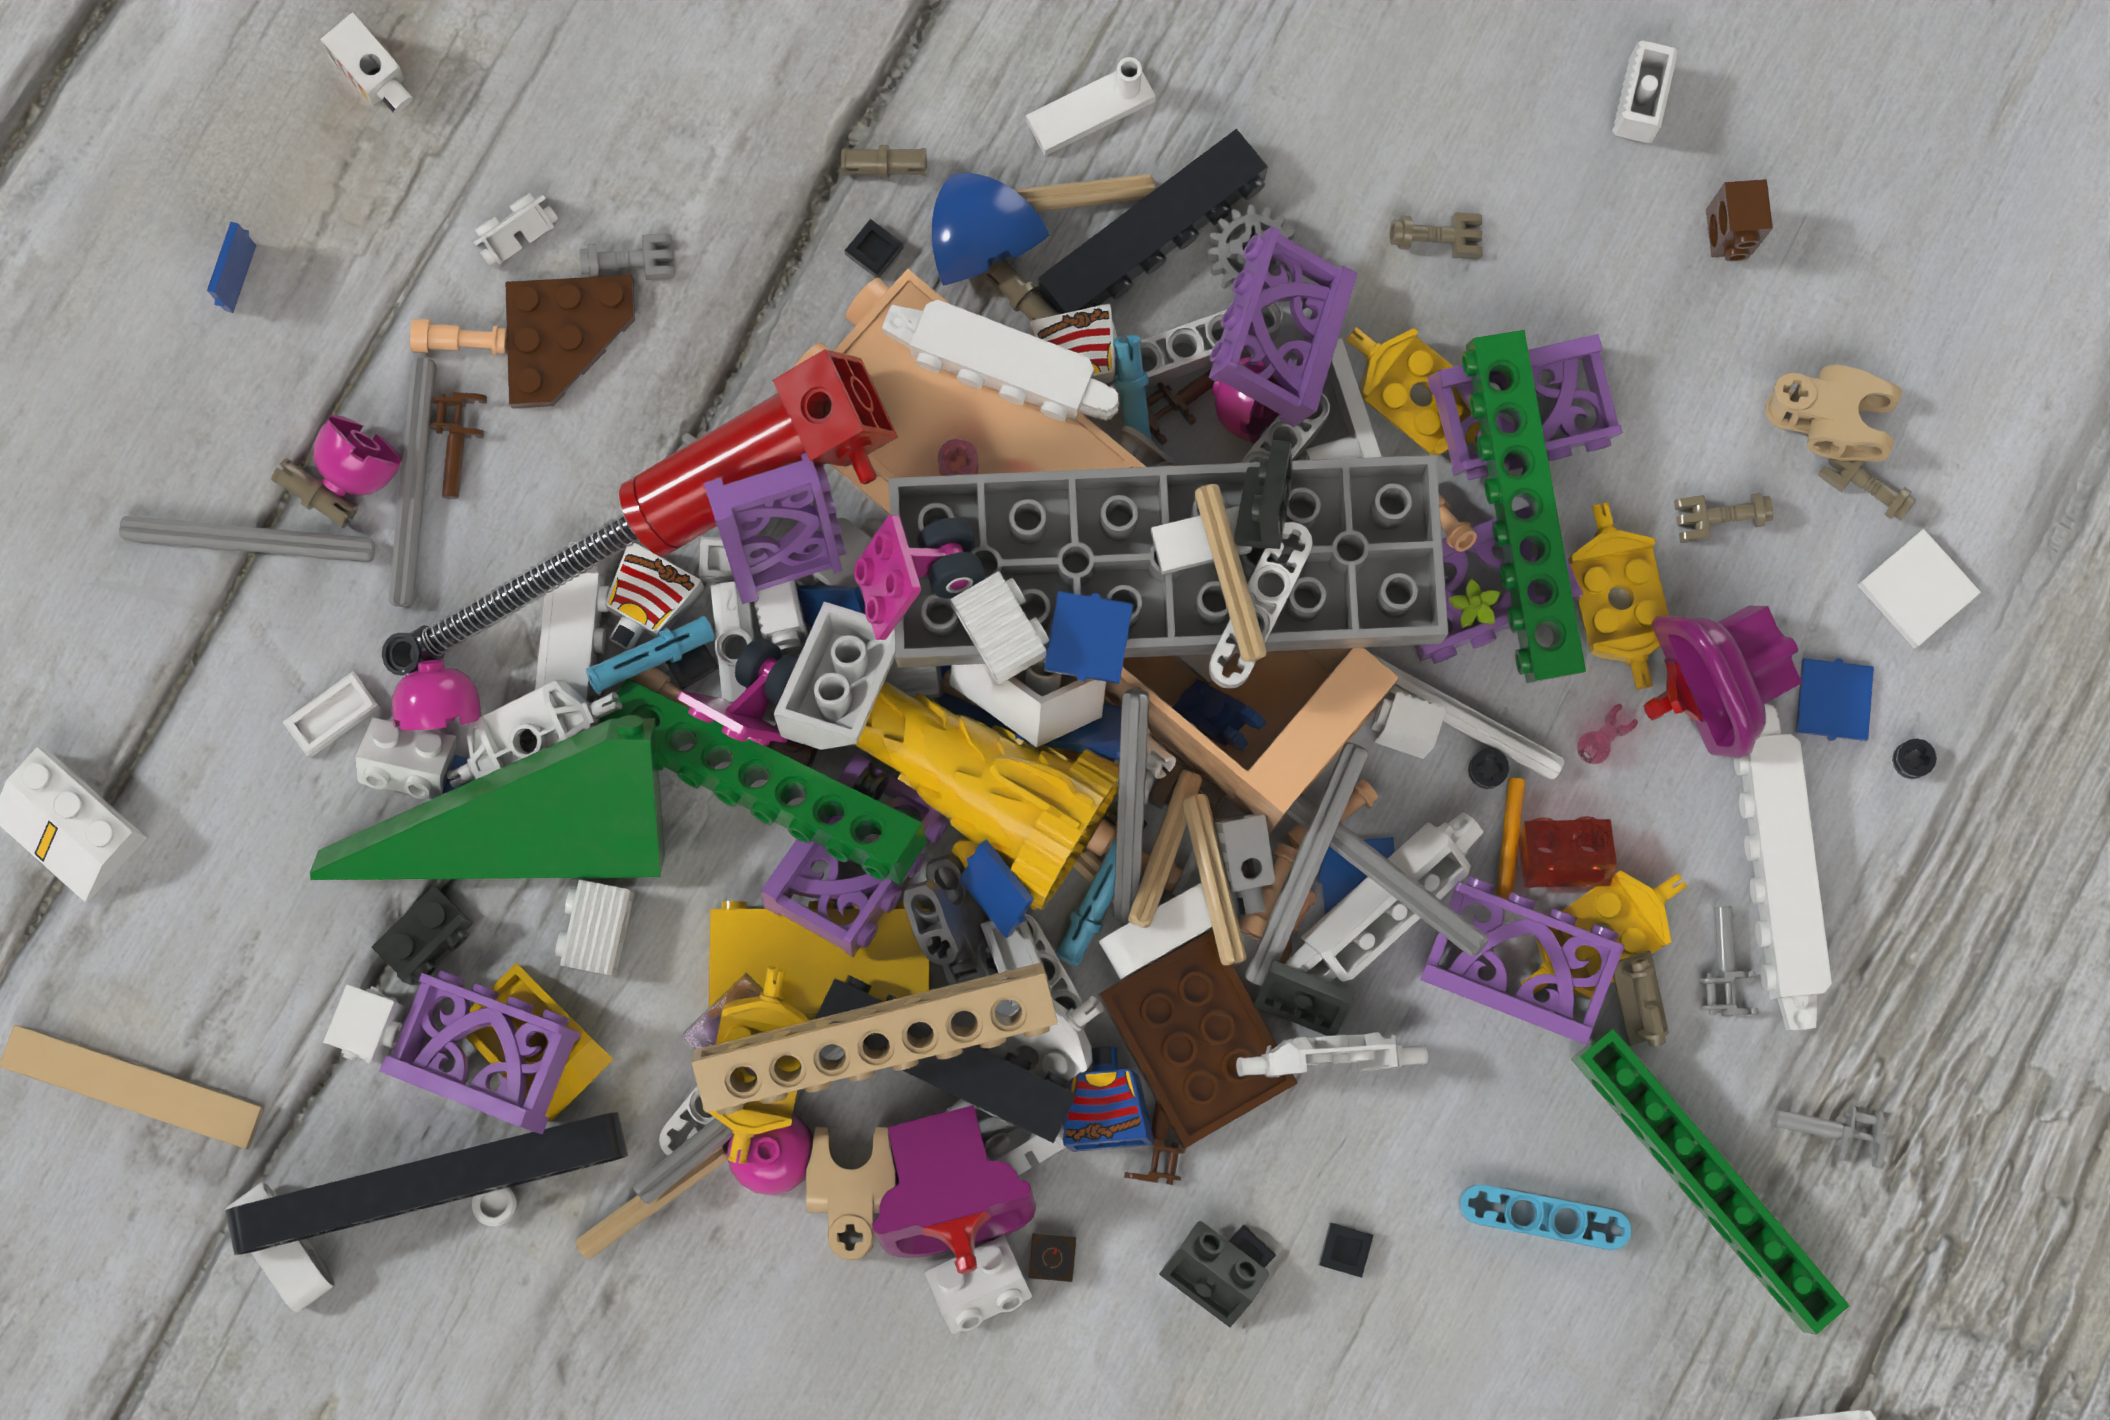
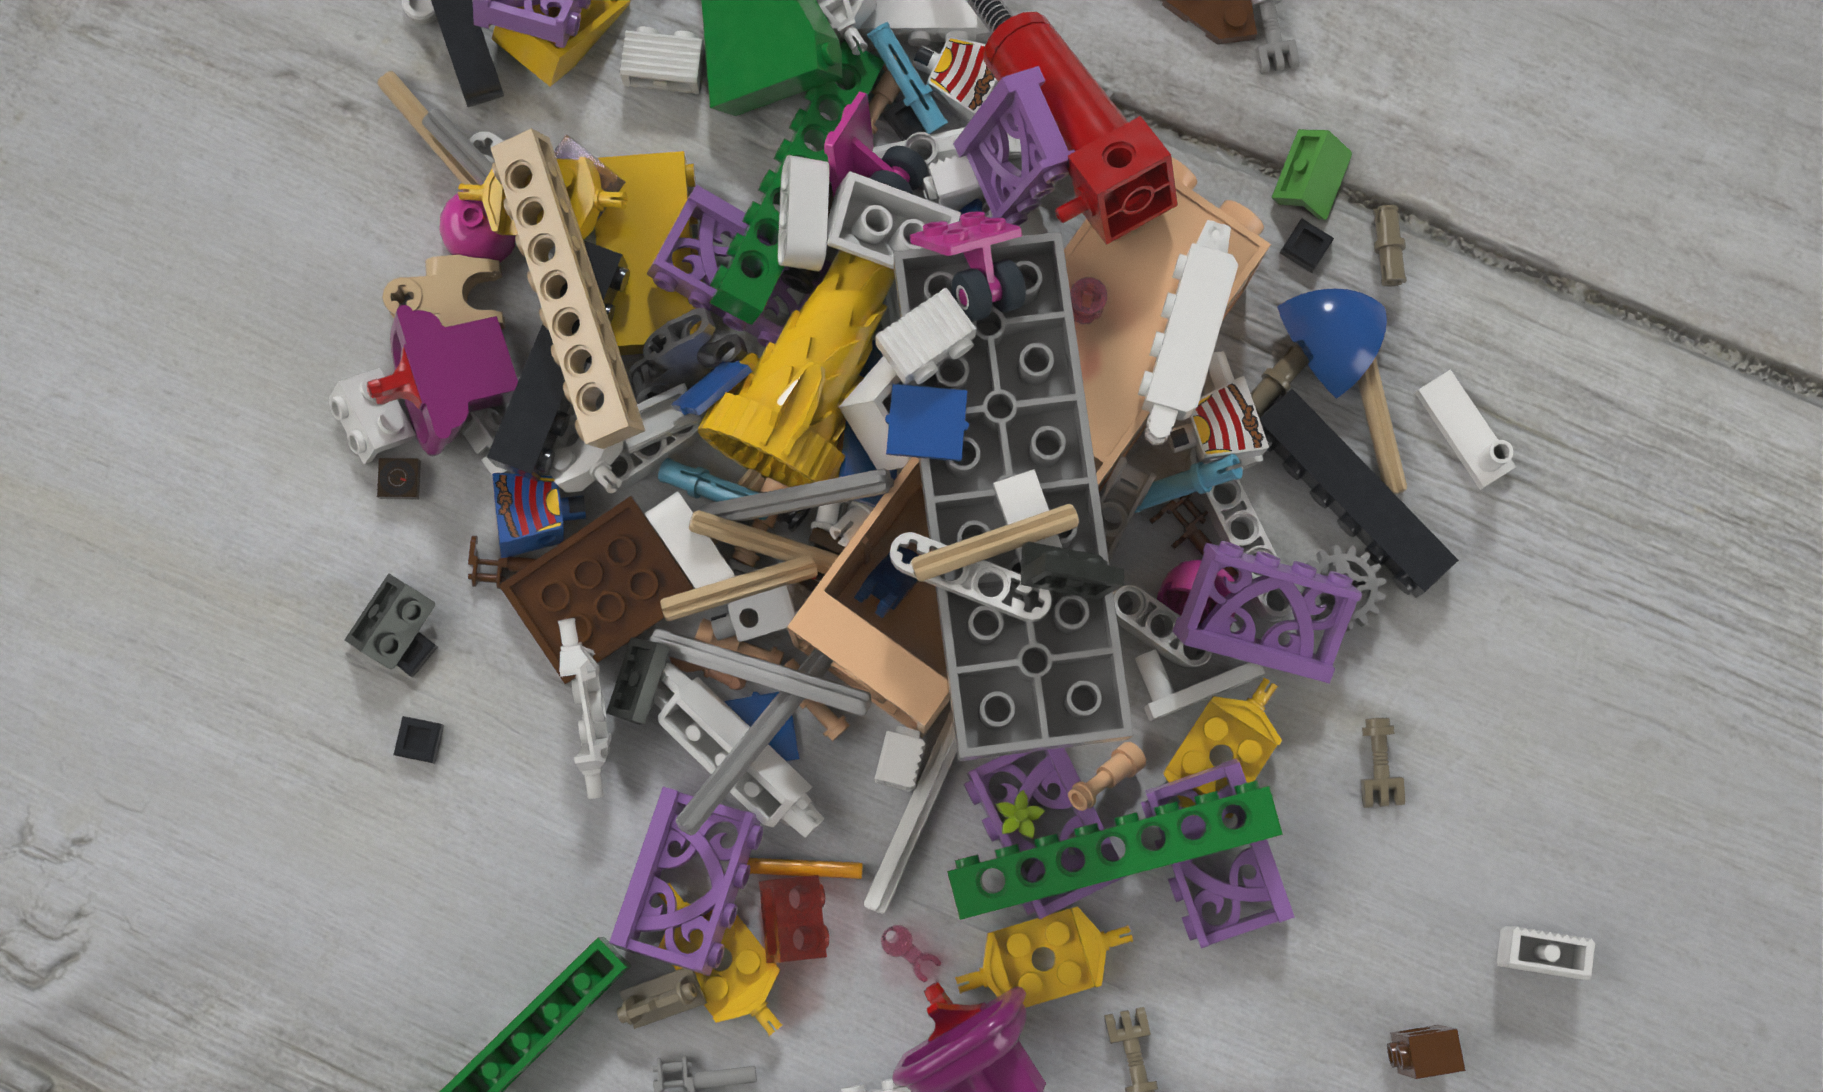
camera: 85 degrees right, 0 degrees up
(794, 234) = (1313, 172): none -> bright green panel
(812, 770) = (803, 213): none -> white beam
(1498, 759) = (860, 851): black bush -> none
(1545, 1212) = (451, 919): medium azure beam -> none

